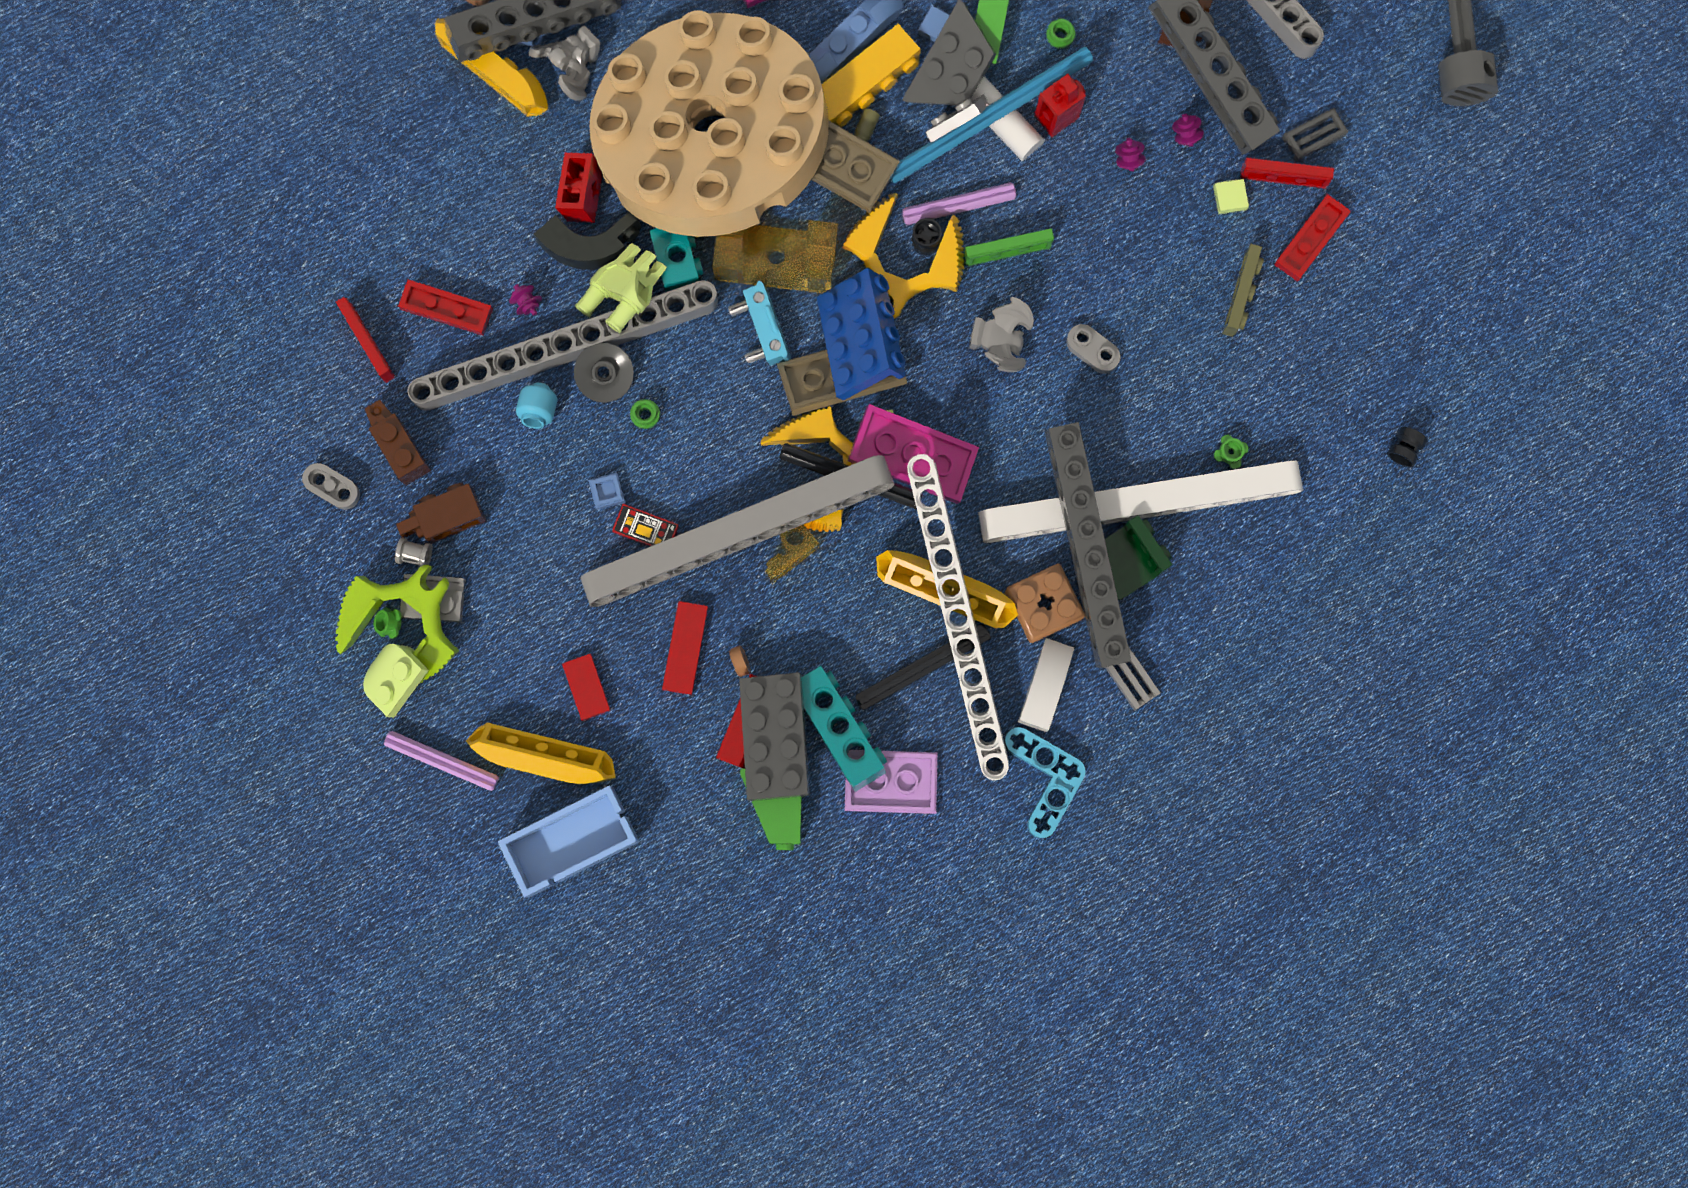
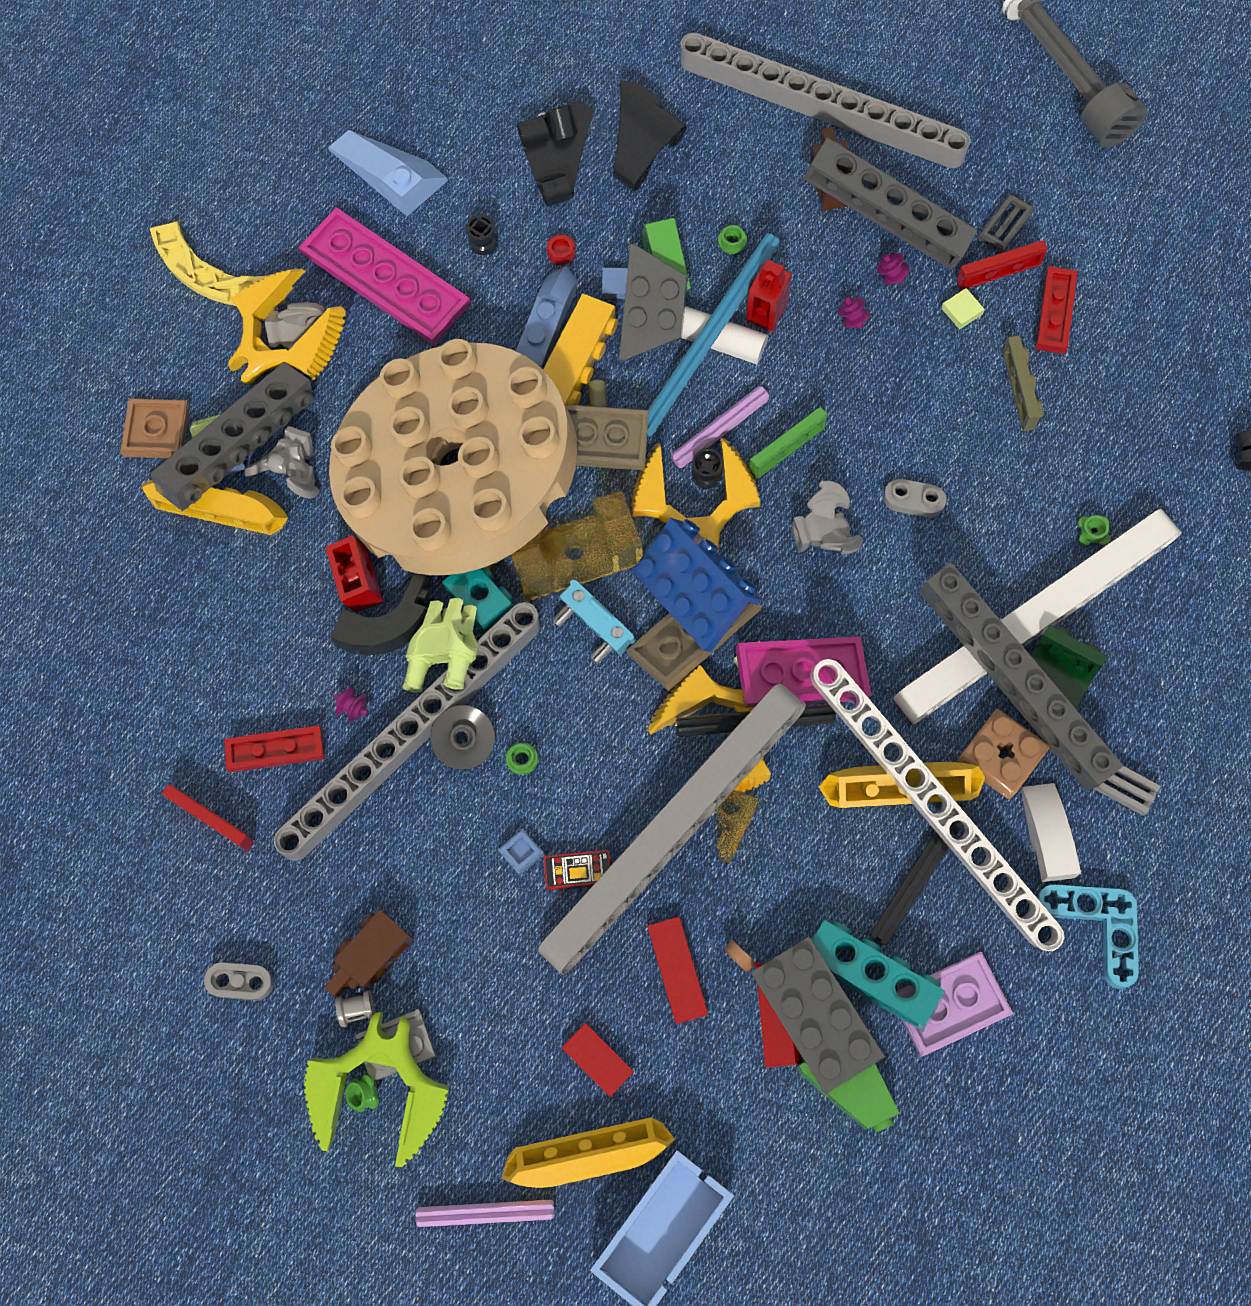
camera: 20 degrees left, 10 degrees down
(393, 678) = (395, 1149): yellowish green slope -> none
(396, 443) = (286, 905): reddish brown hinge -> none
(536, 405) = (411, 801): medium azure head -> none
(964, 112) = (686, 339): plate -> none

